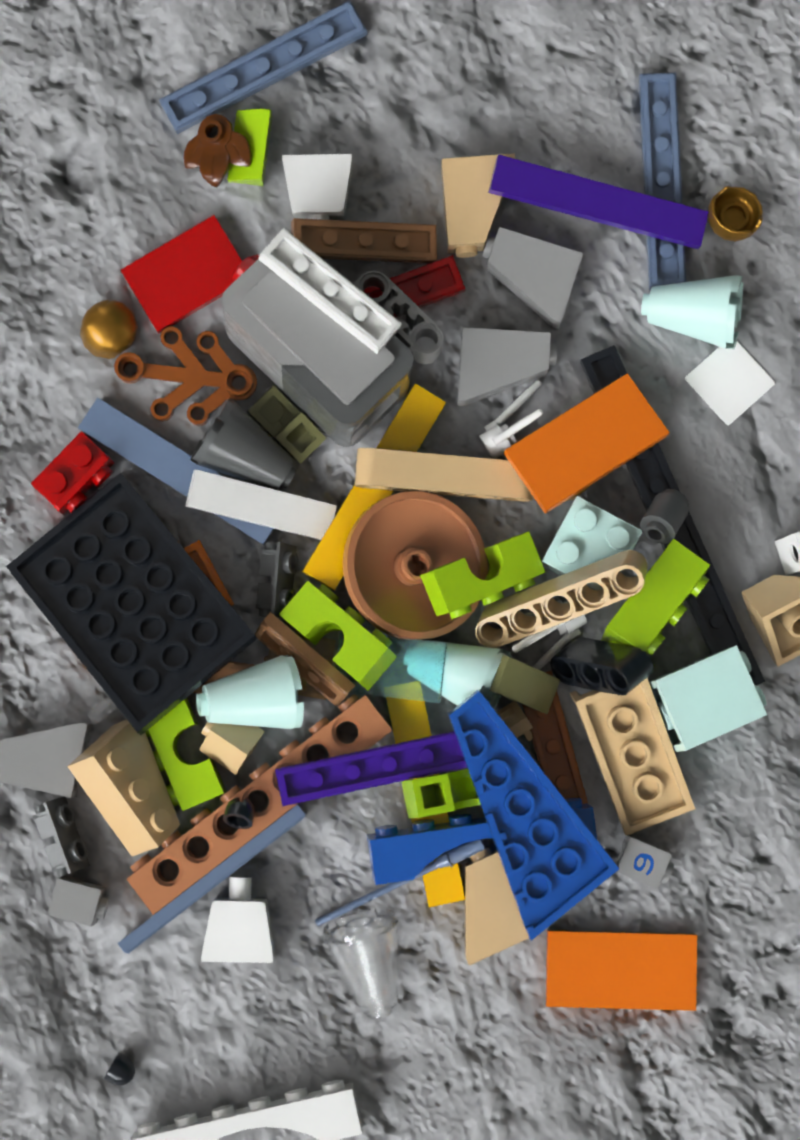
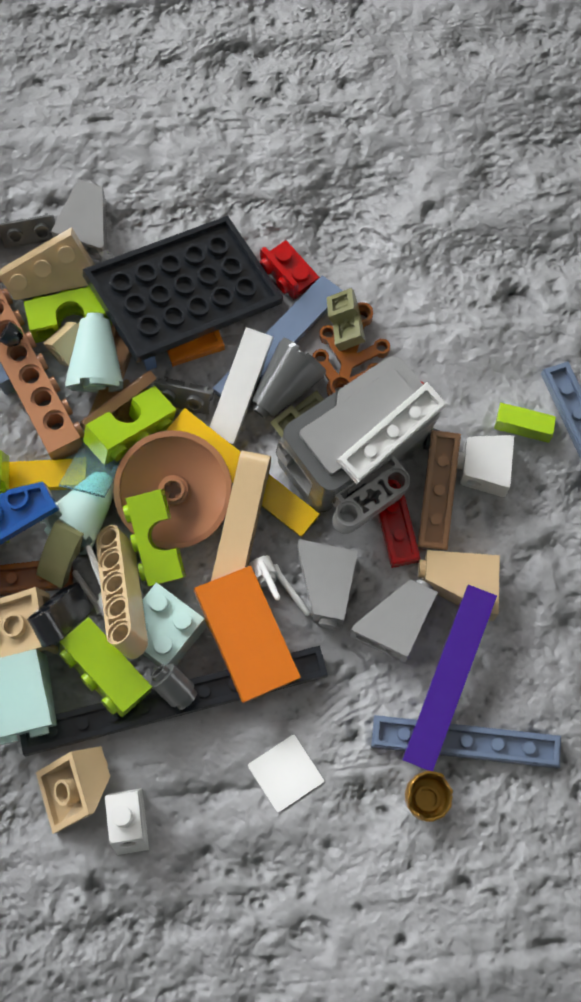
camera: 100 degrees right, 15 degrees down
(108, 329) = (394, 305): pearl gold hair -> none
(144, 385) = (346, 319): none -> olive slope
(183, 273) = (432, 358): red tile -> none
(216, 153) = (525, 396): reddish brown plate -> none
(369, 768) = (22, 426): dark purple tile -> none
(516, 720) = (32, 543): tan tile -> none
(698, 308) = (347, 751): light aqua cone -> none

